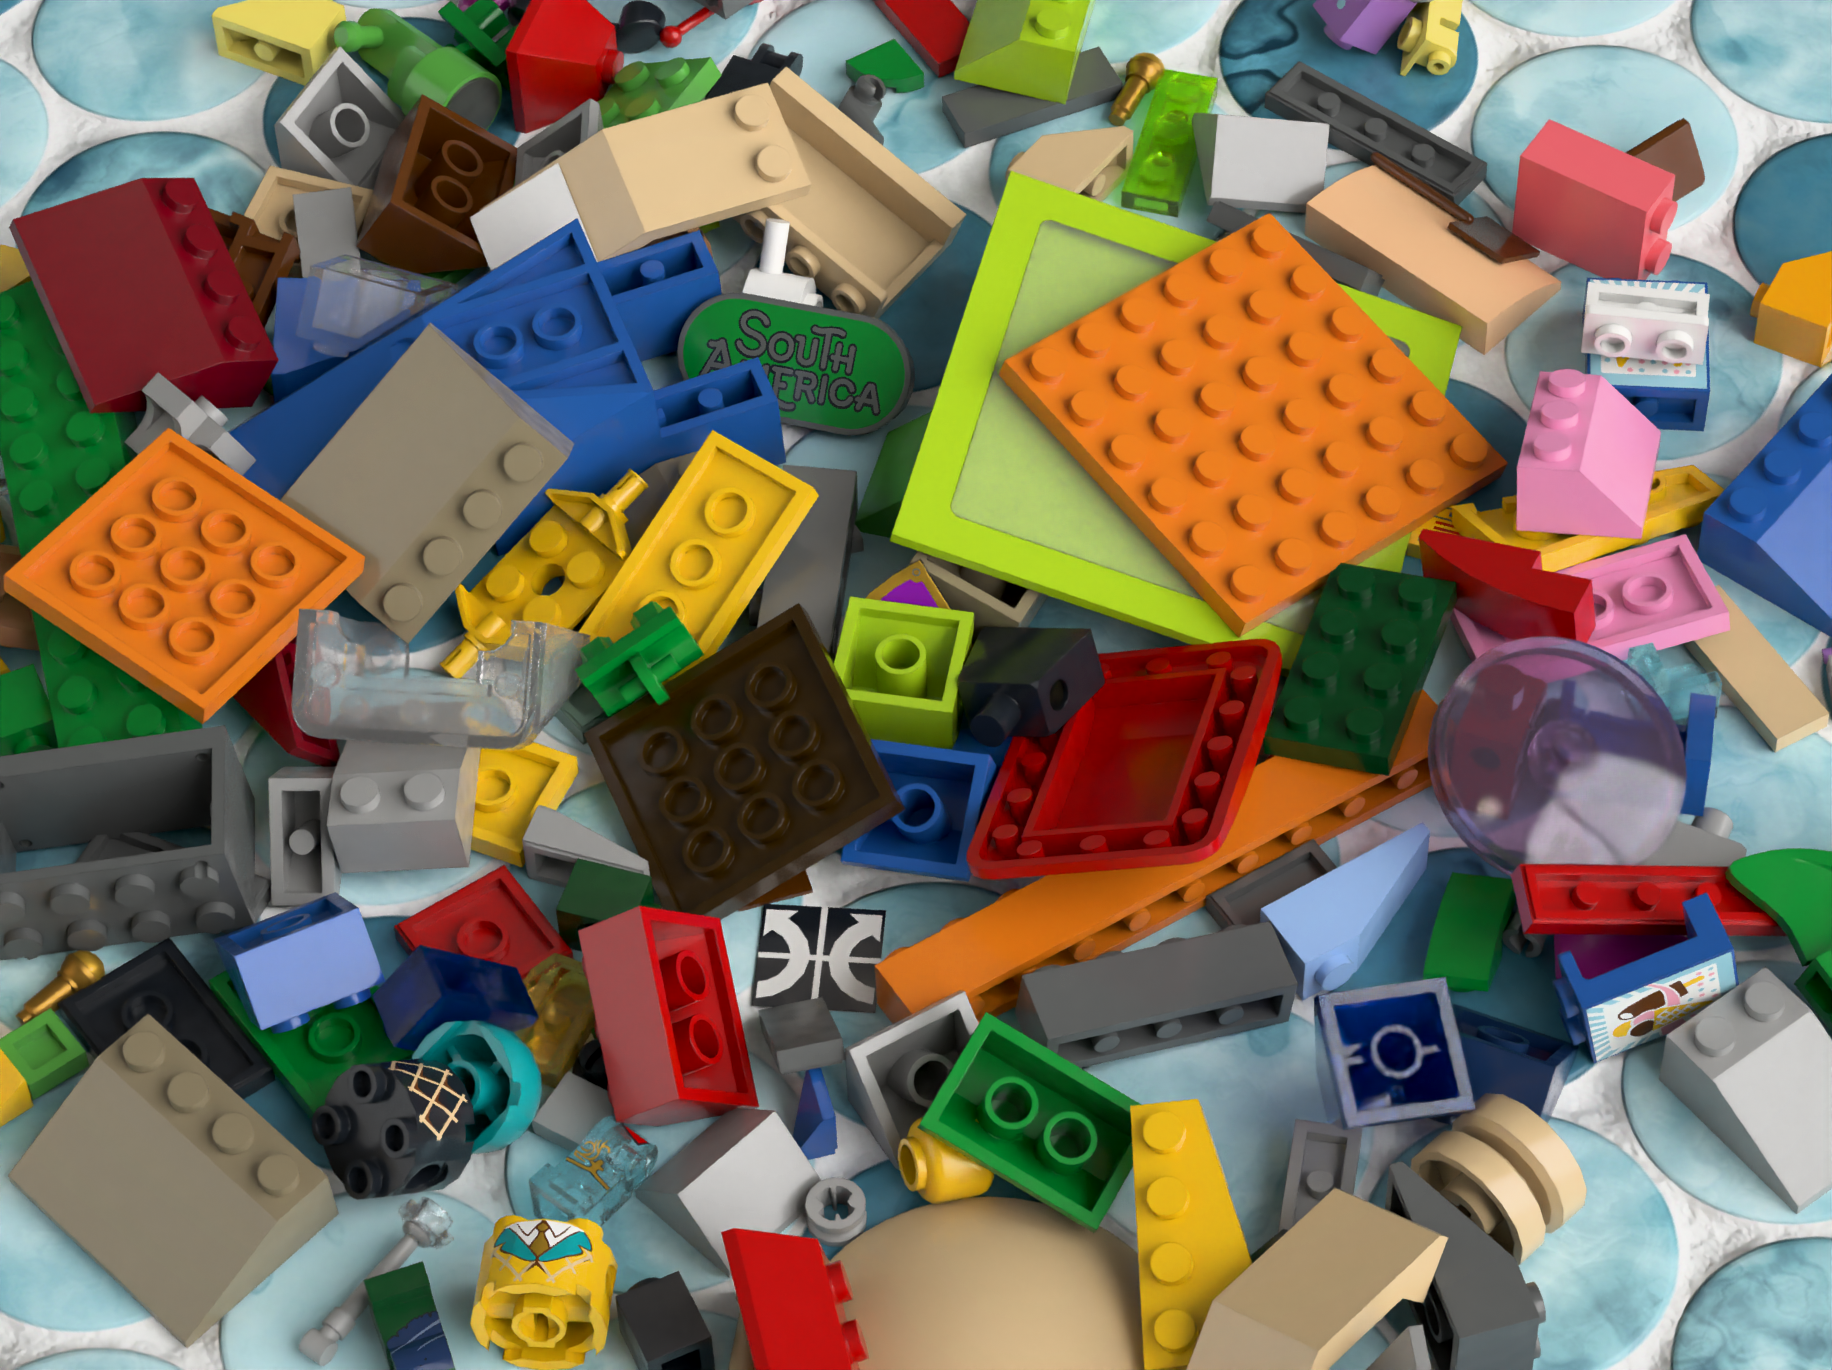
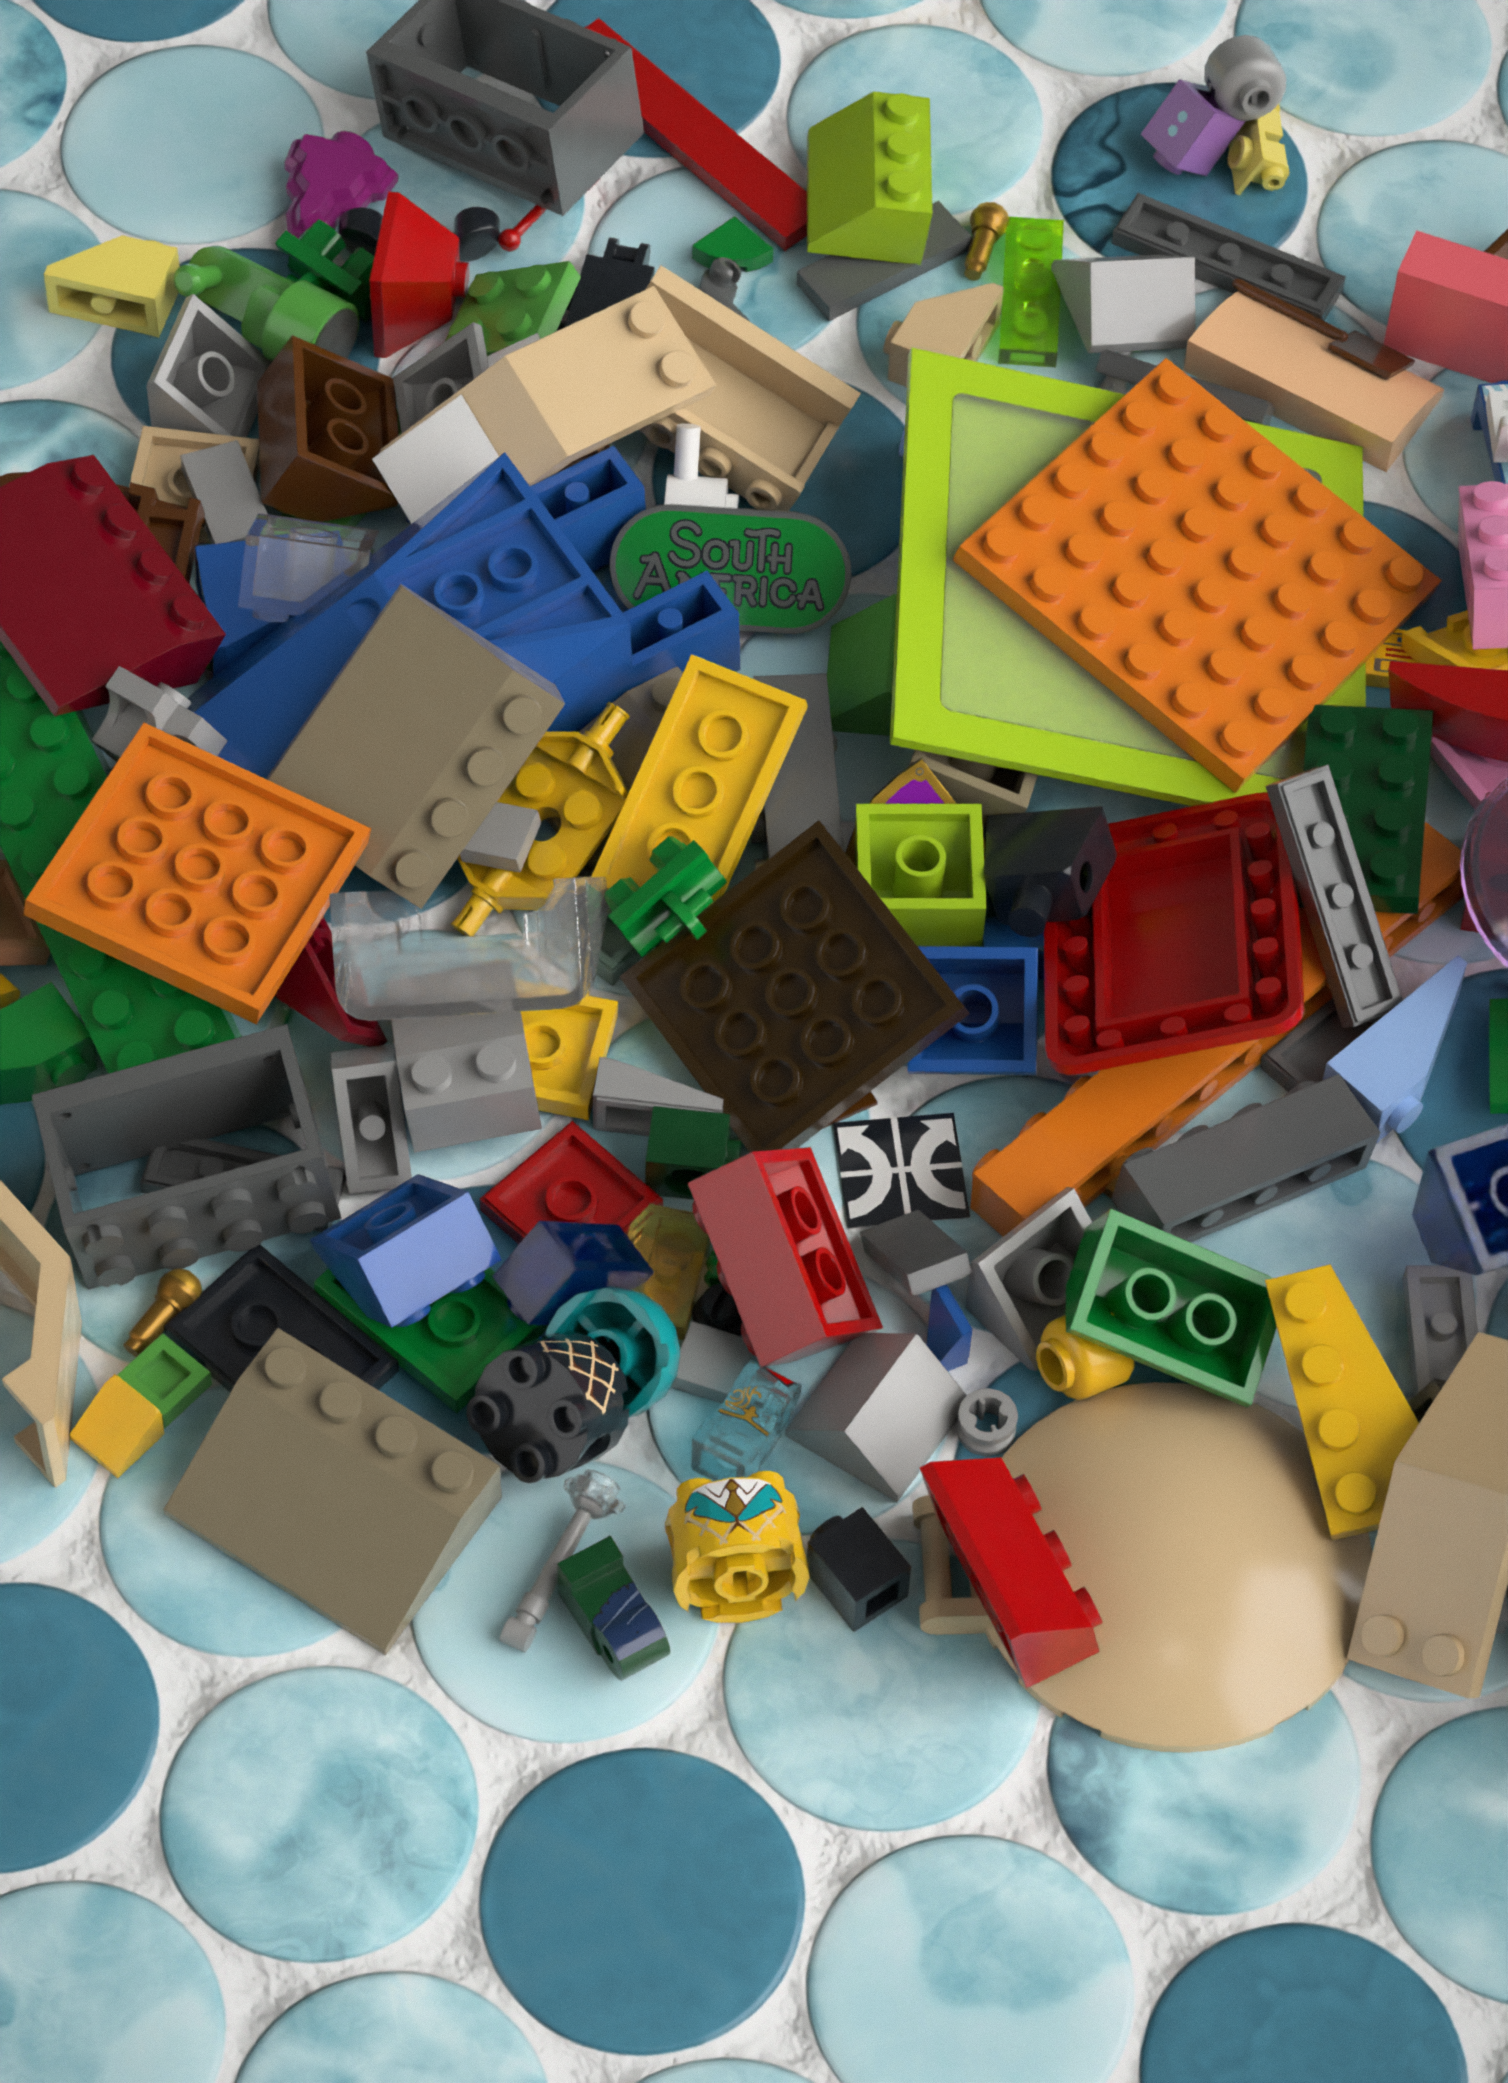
camera: 15 degrees left, 5 degrees up
(499, 584) = (503, 838): none -> light grey tile
(1300, 743) = (1334, 895): none -> dark grey tile

